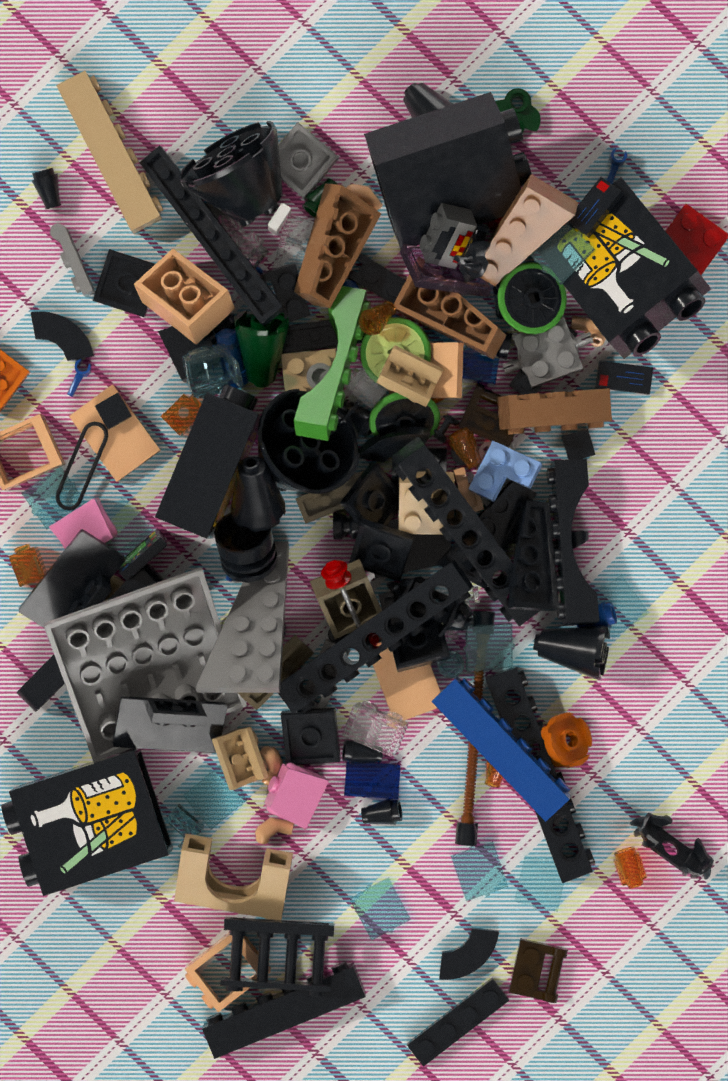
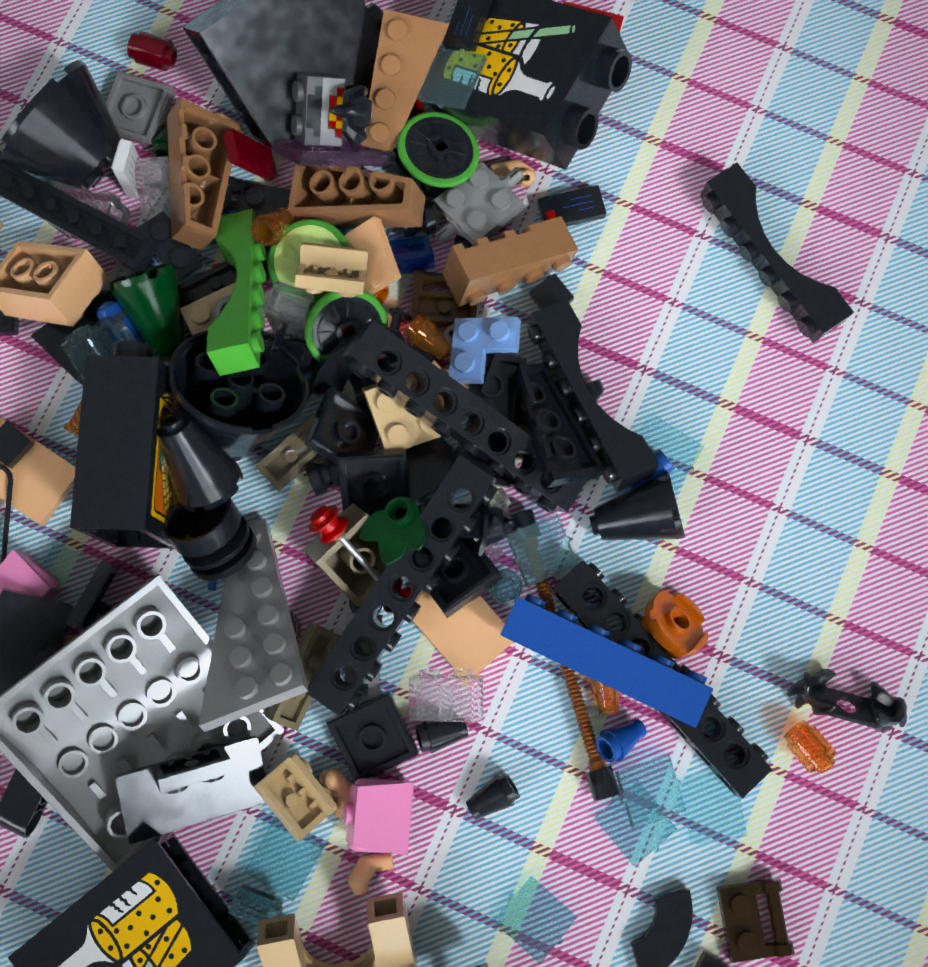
camera: 25 degrees left, 10 degrees down
(332, 113) = (152, 51): none -> dark red brick
(372, 780) = (466, 762): clear blue panel -> none
(380, 242) = (250, 154): none -> dark red tile
(380, 600) = (394, 533): none -> dark green plate
(489, 808) = (619, 740): none -> blue cone
(499, 853) = (650, 791): none -> clear light blue piece

